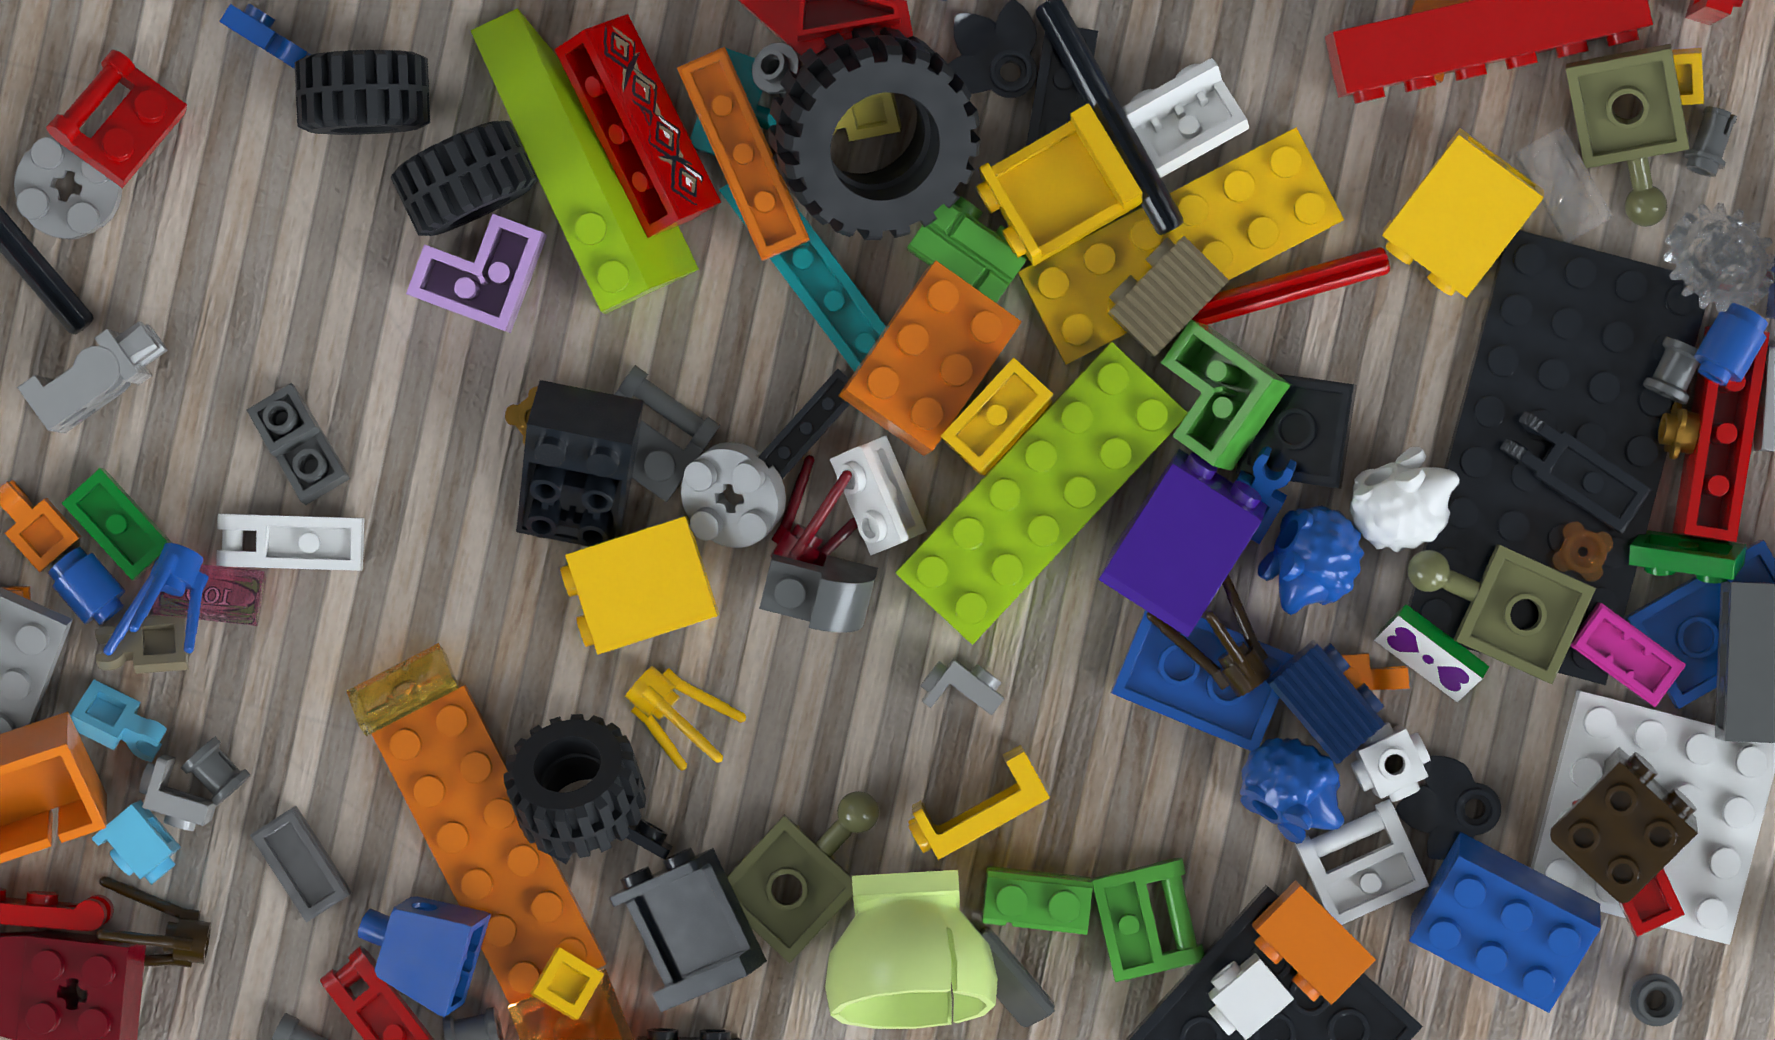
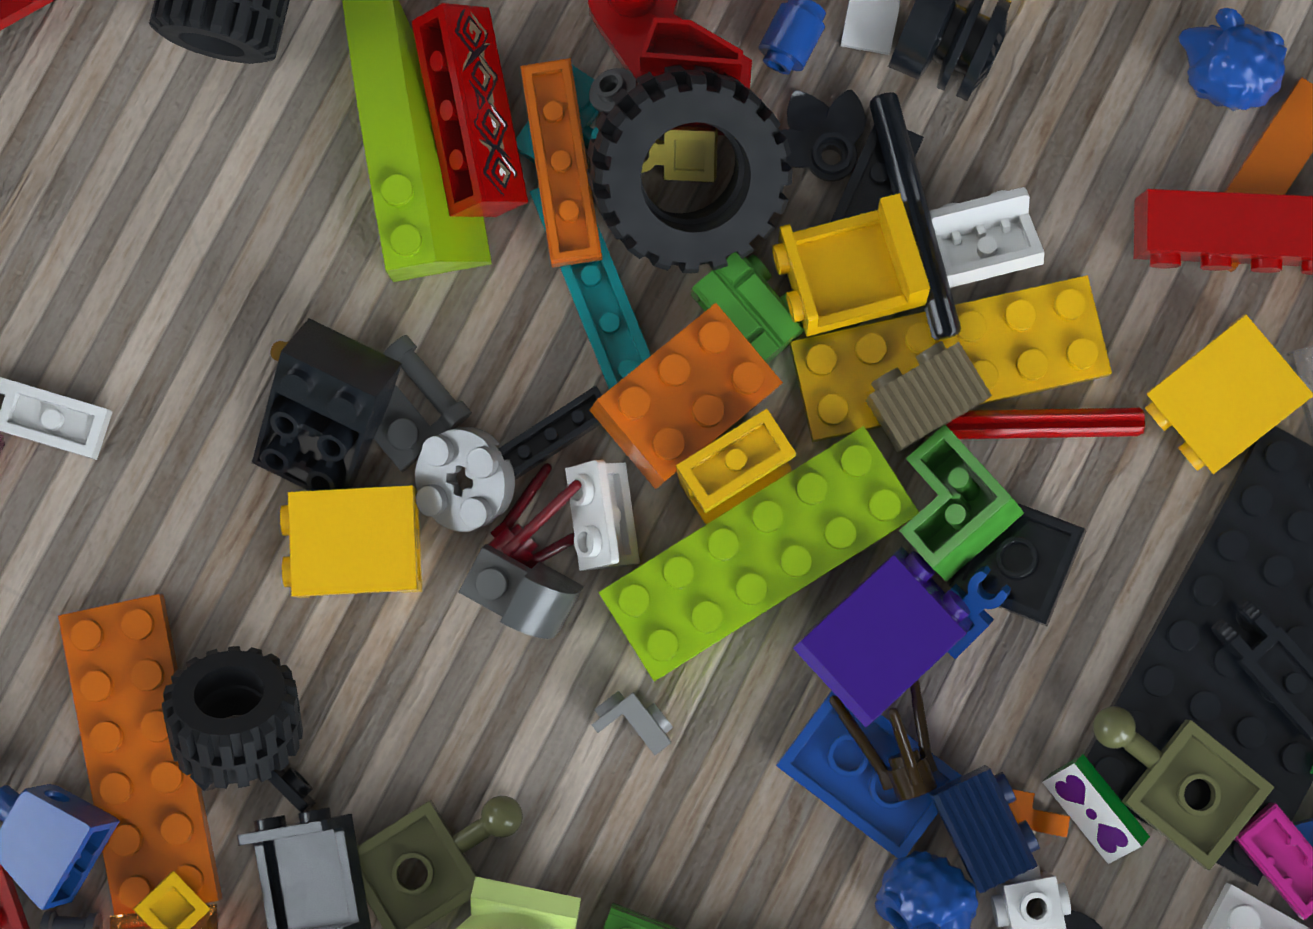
camera: 10 degrees right, 5 degrees down
(298, 444) = (71, 326): dark grey slope -> none
(402, 689) = (99, 582): clear yellow plate -> none
(464, 178) = (291, 112): black tyre -> none
(492, 285) = (290, 221): lavender brick -> none
(655, 697) = (337, 653): yellow plant -> none
(984, 816) = (620, 853): yellow panel -> none
(1314, 558) = (1005, 685): blue animal -> none
(1401, 502) = (1104, 654): white animal -> none
(1590, 565) = (1283, 749): clear orange plate -> none

